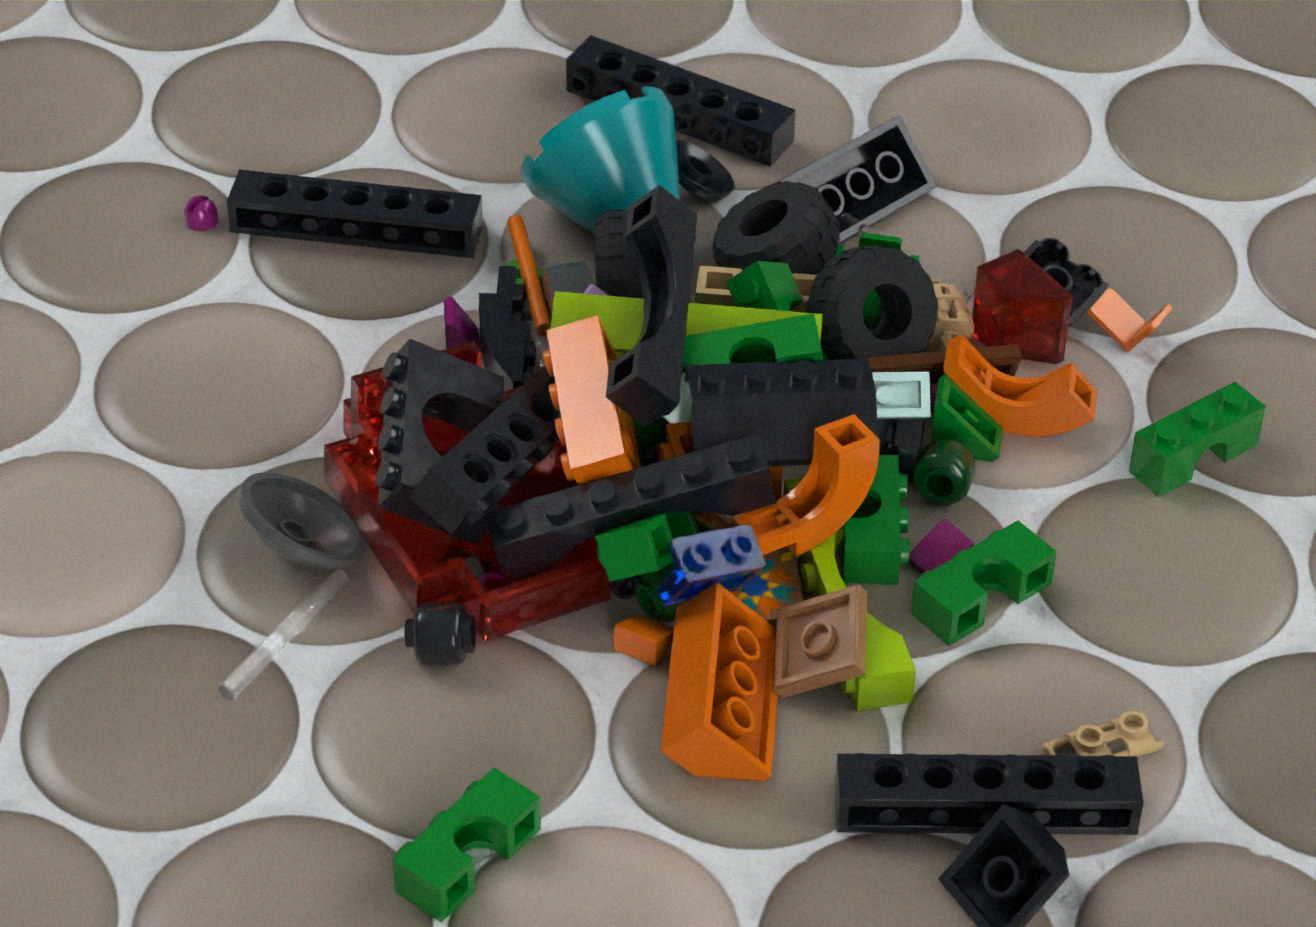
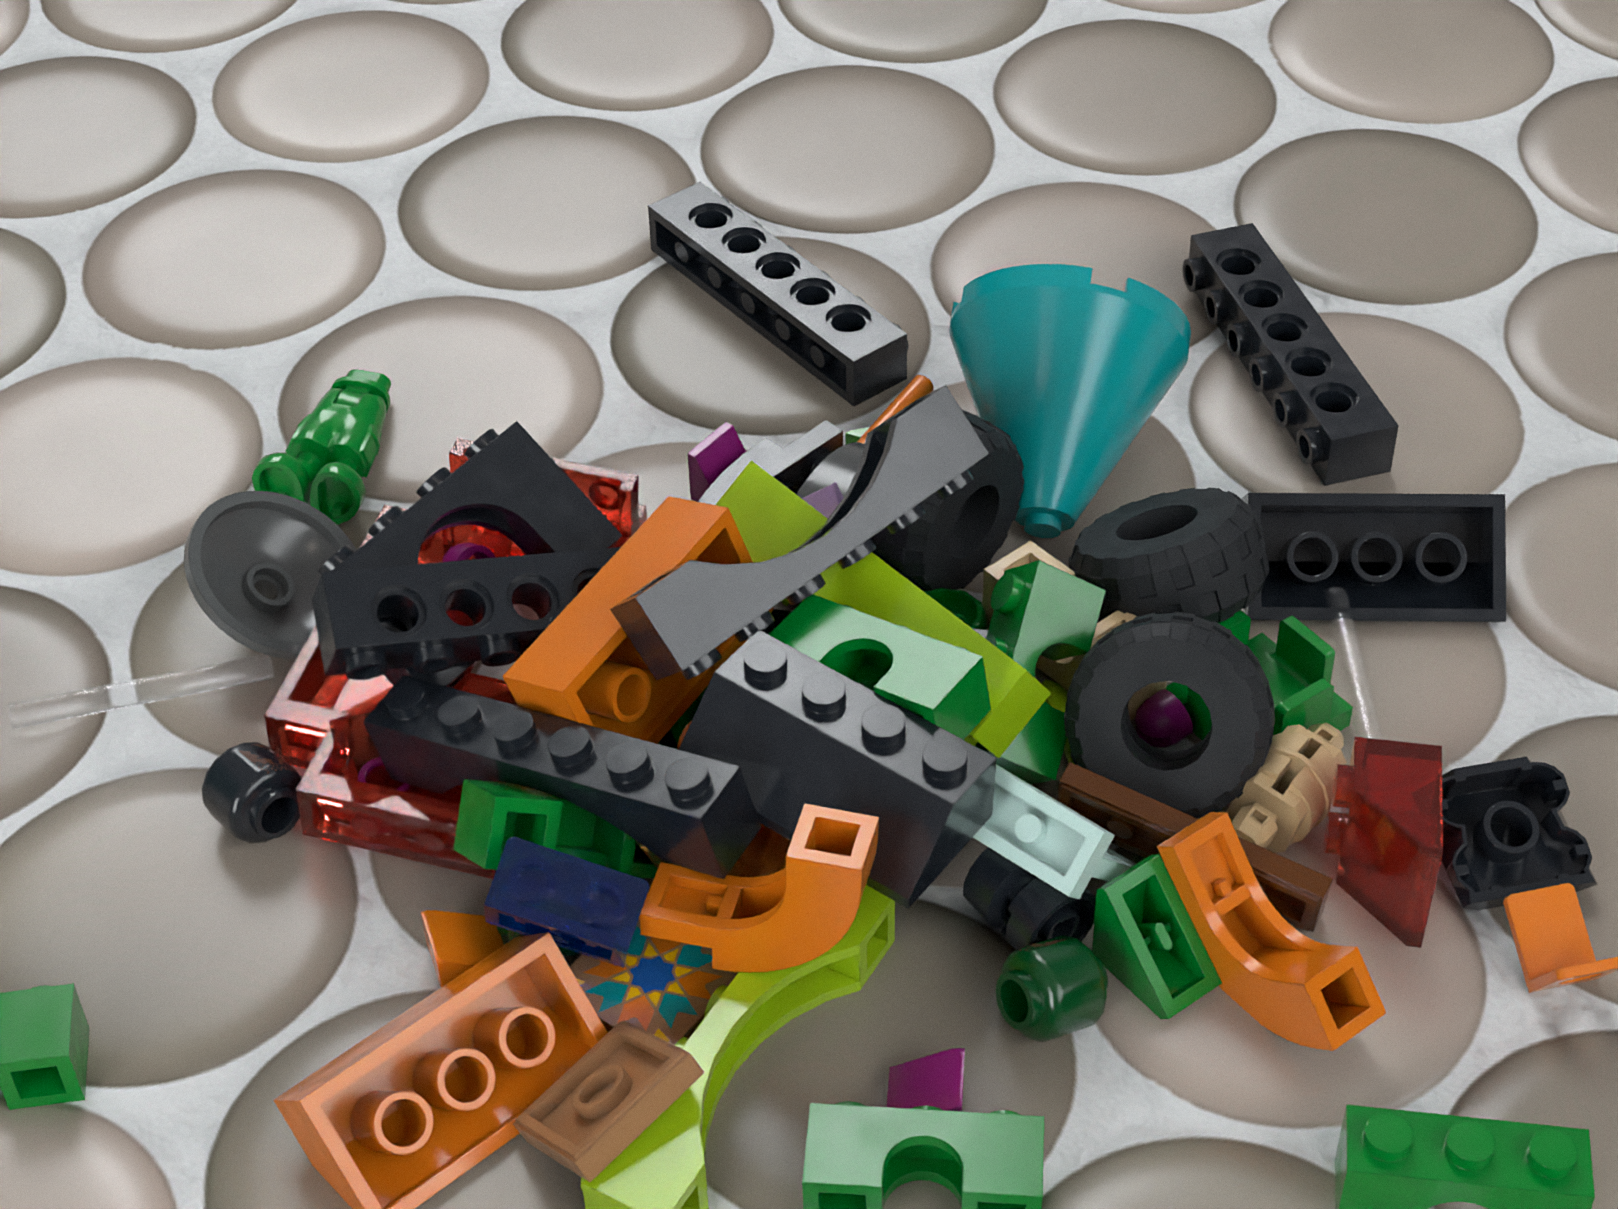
camera: 45 degrees right, 0 degrees up
(201, 213) = (634, 213): magenta hinge -> none
(214, 443) = (332, 448): none -> green piece
(702, 171) = (1207, 436): black dish -> none
(873, 534) = (853, 1025): green arch -> none

